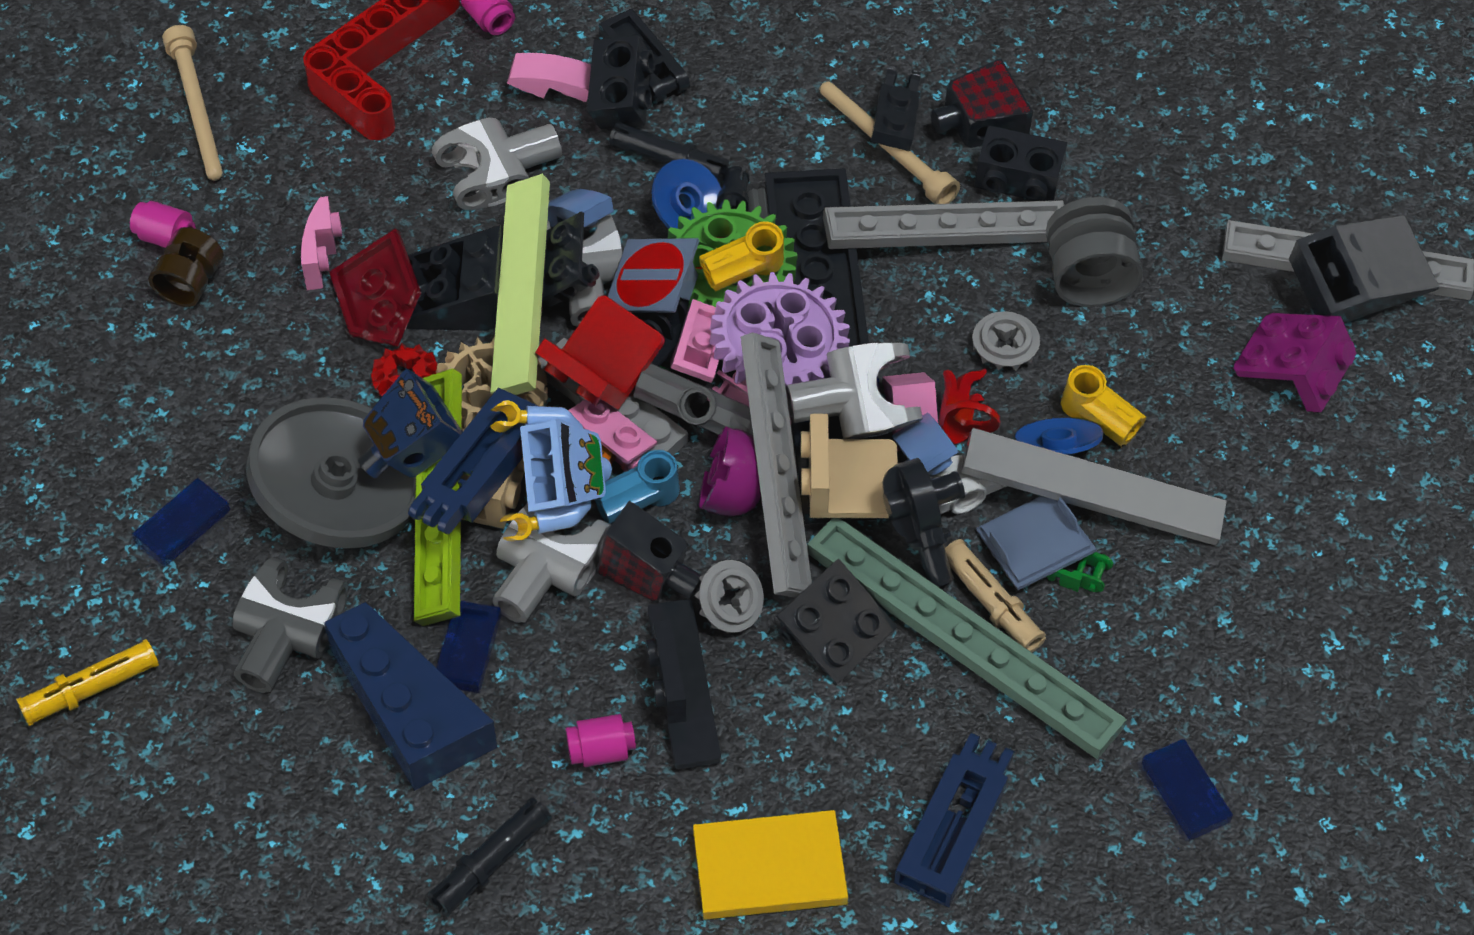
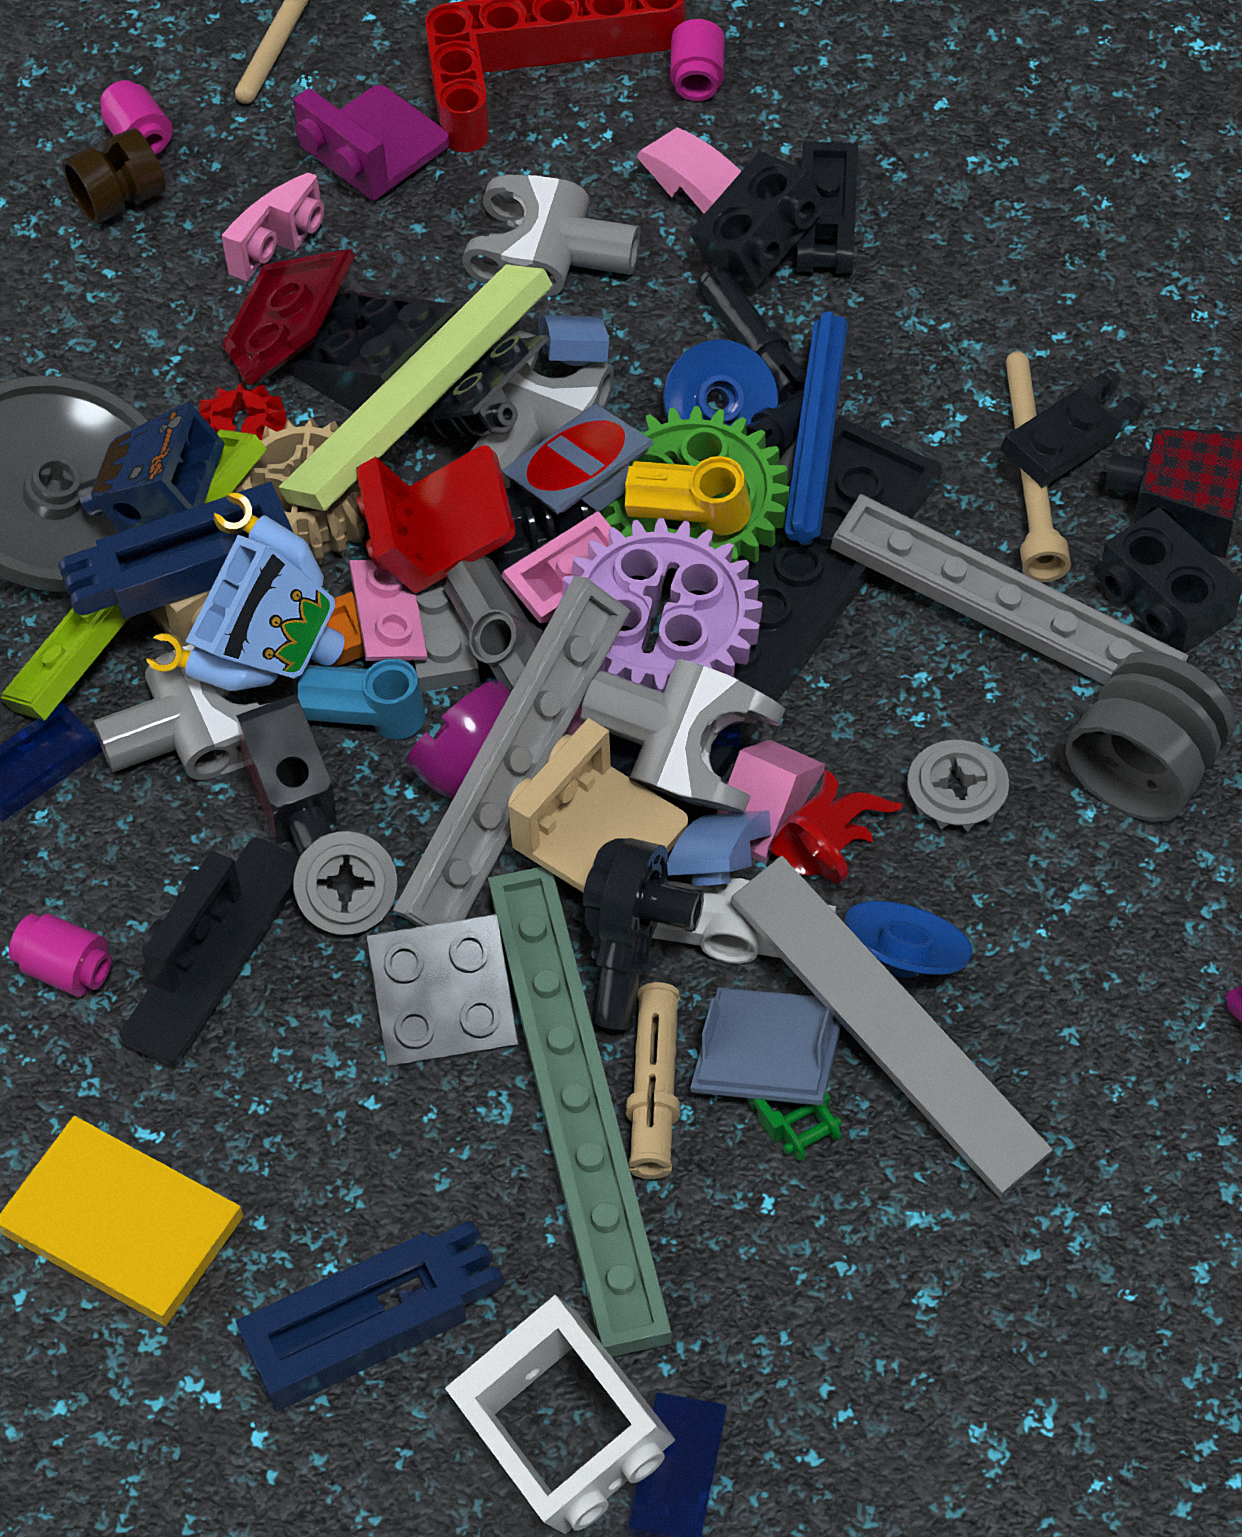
camera: 40 degrees right, 0 degrees up
(327, 158) = (369, 140): none -> magenta bracket
(763, 184) = (816, 429): none -> blue axle
(1101, 404) = (999, 935): yellow piece -> none
(1163, 831) = (513, 1367): none -> white window

